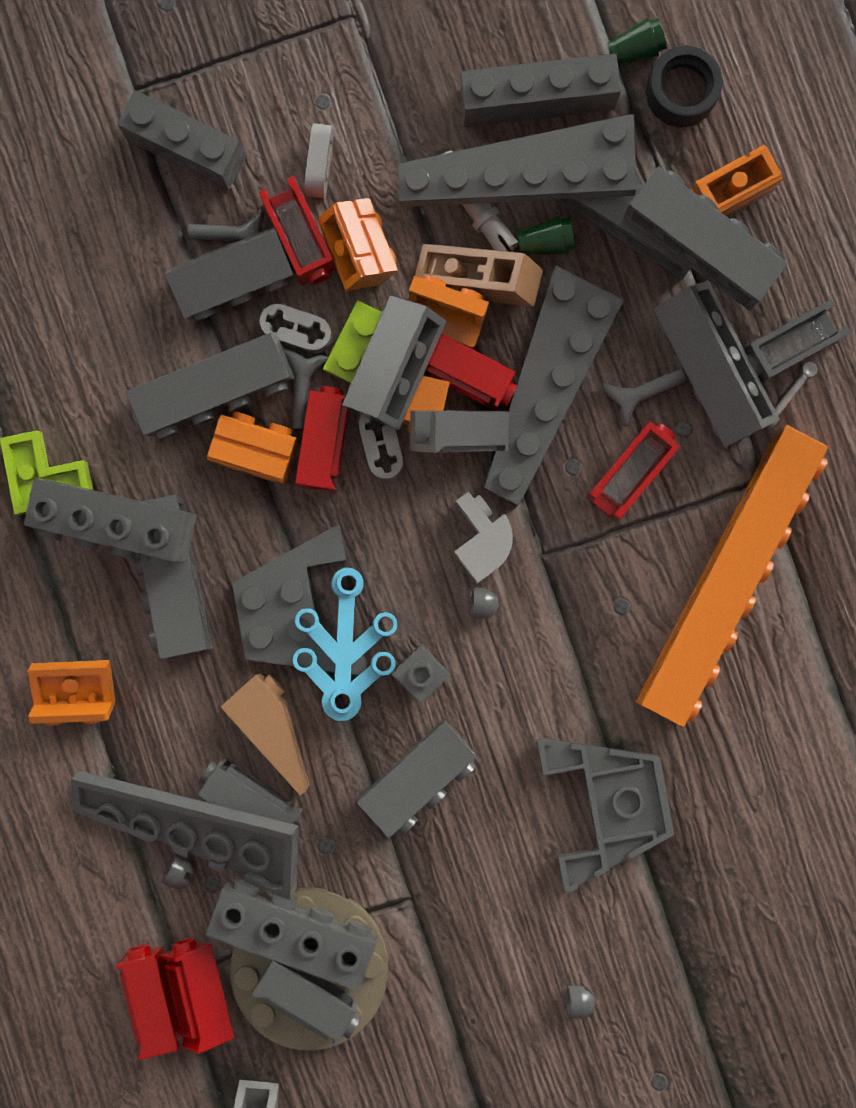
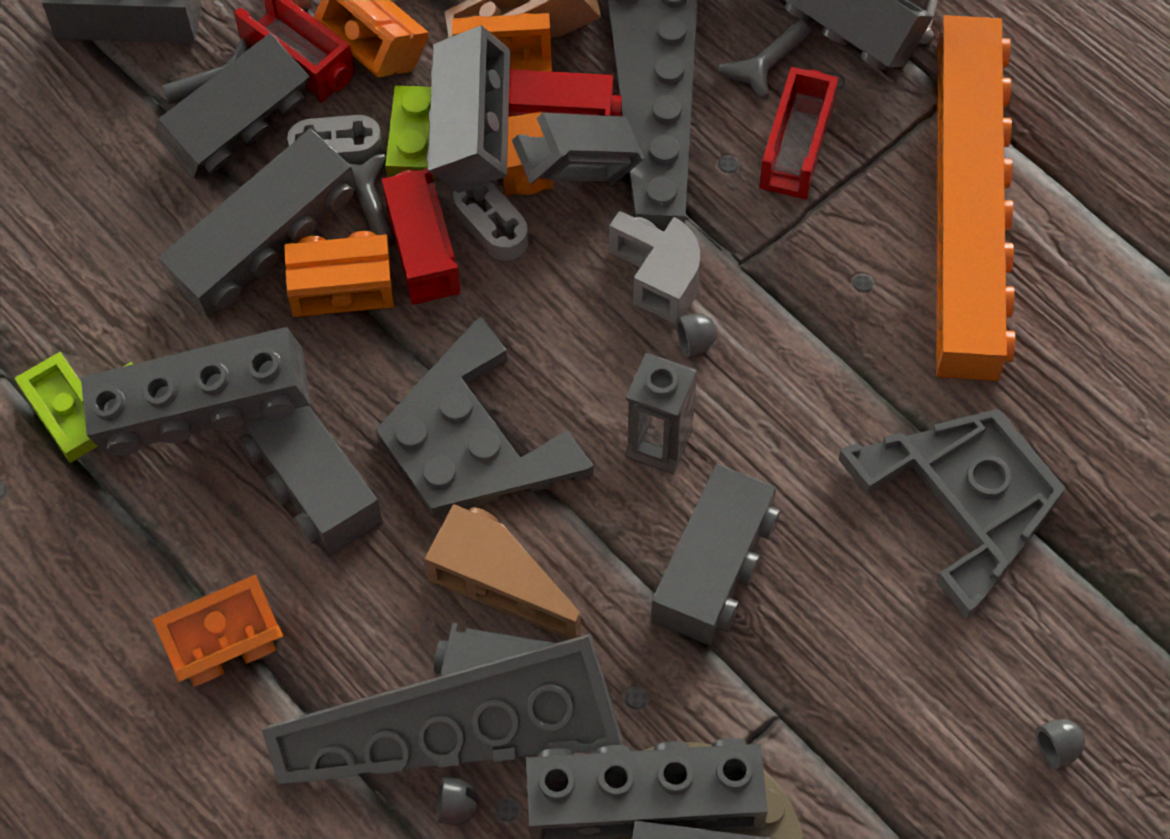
camera: 25 degrees left, 25 degrees down
(344, 650) = (549, 445): medium azure plant -> none

